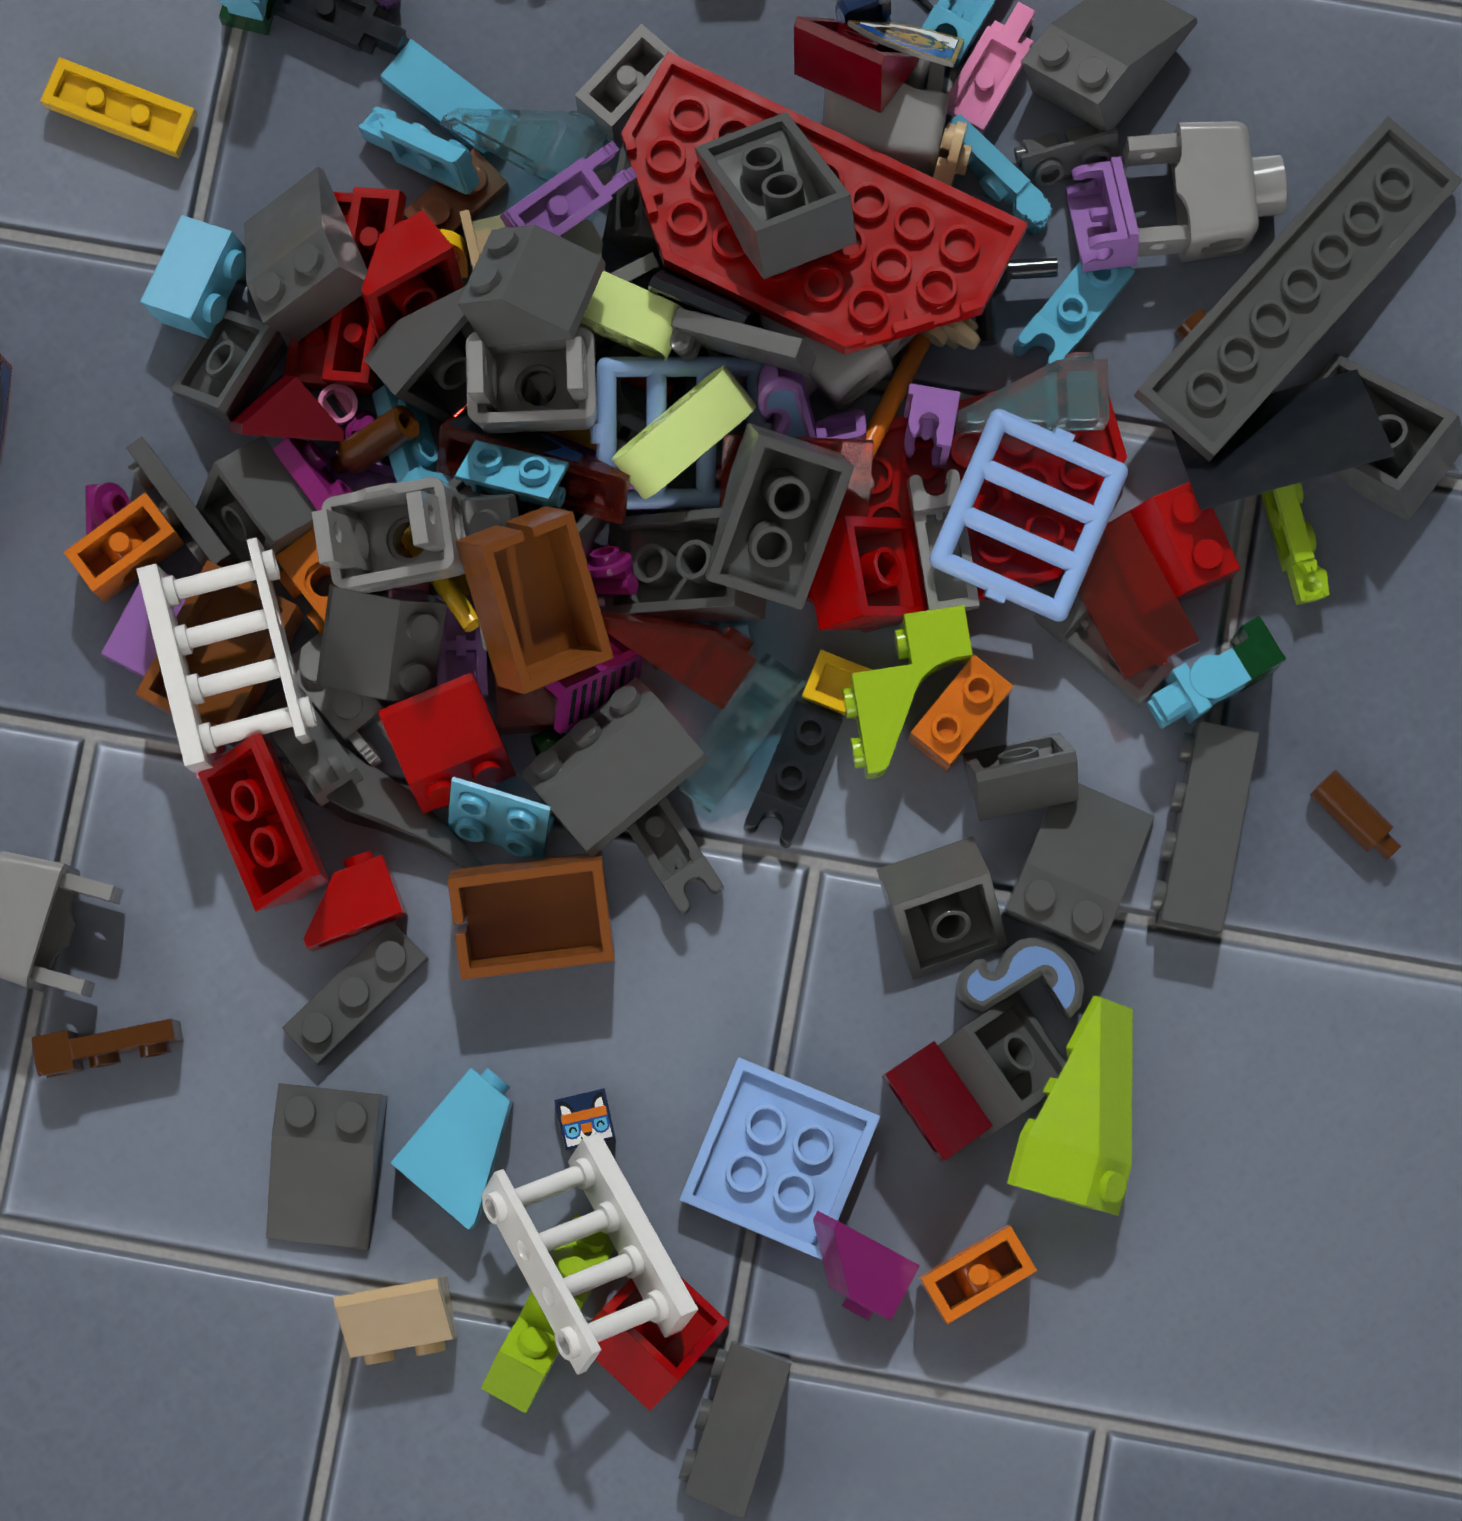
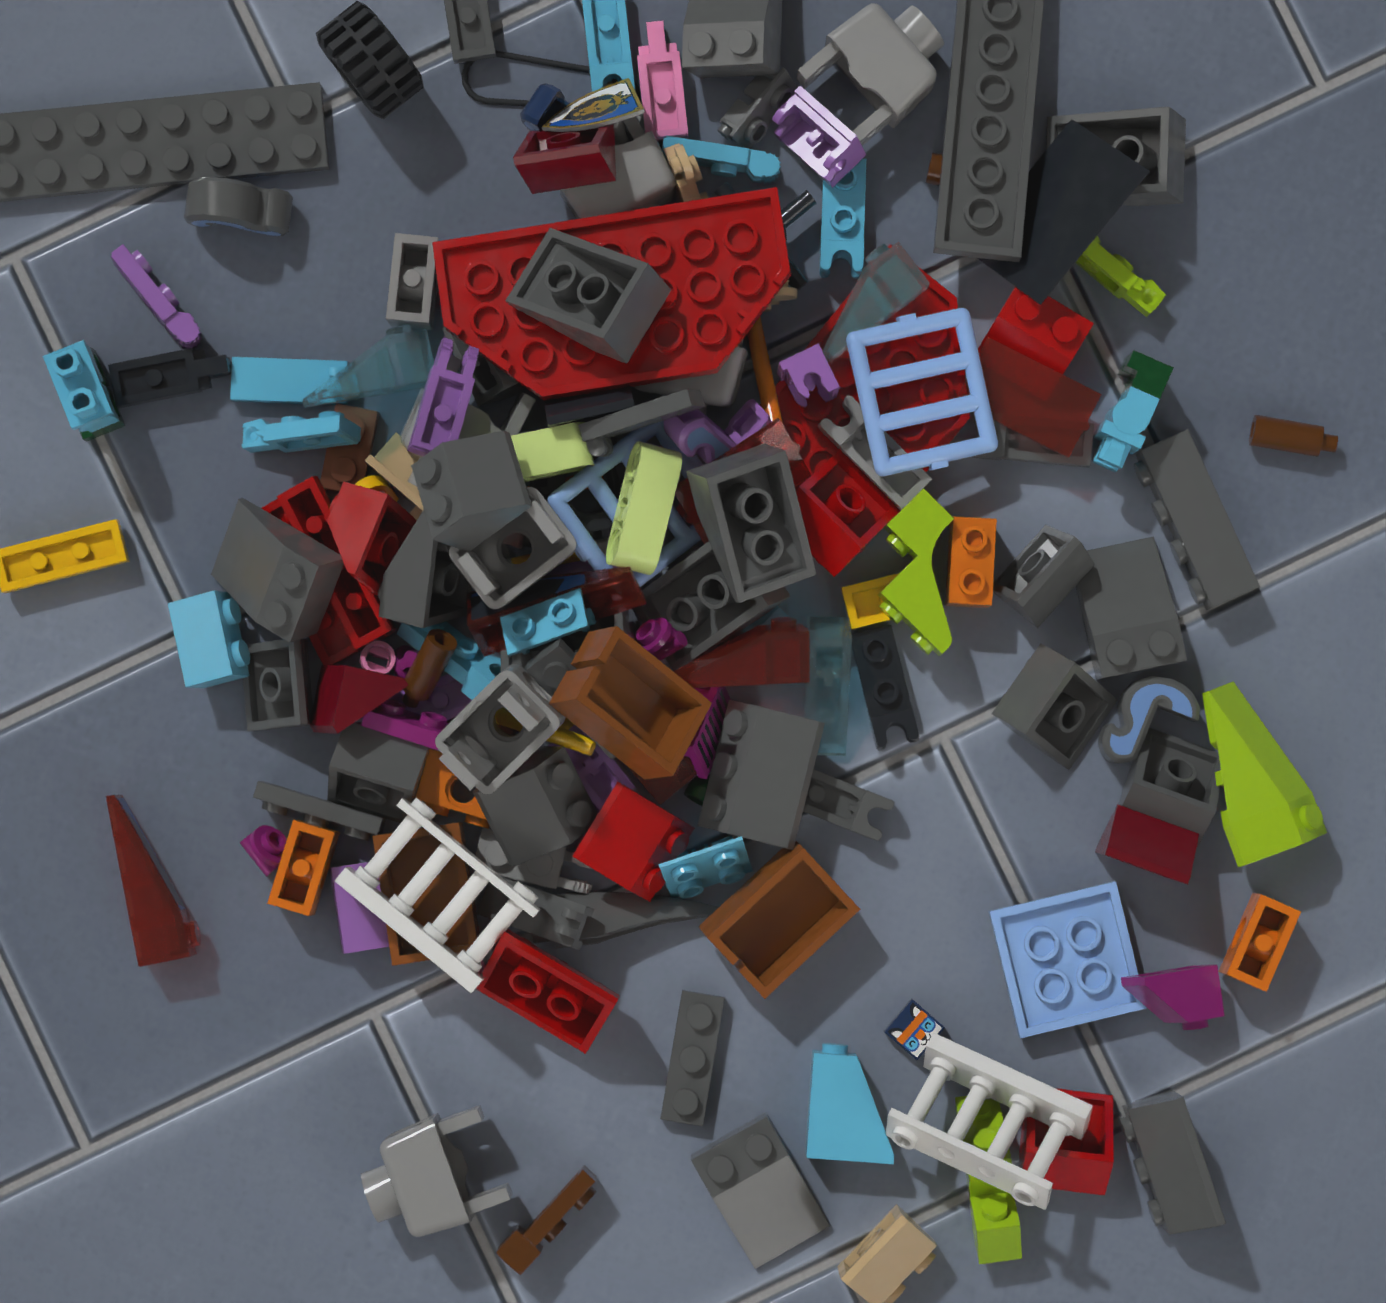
camera: 35 degrees left, 5 degrees up
(355, 902) = (648, 995): red slope -> none

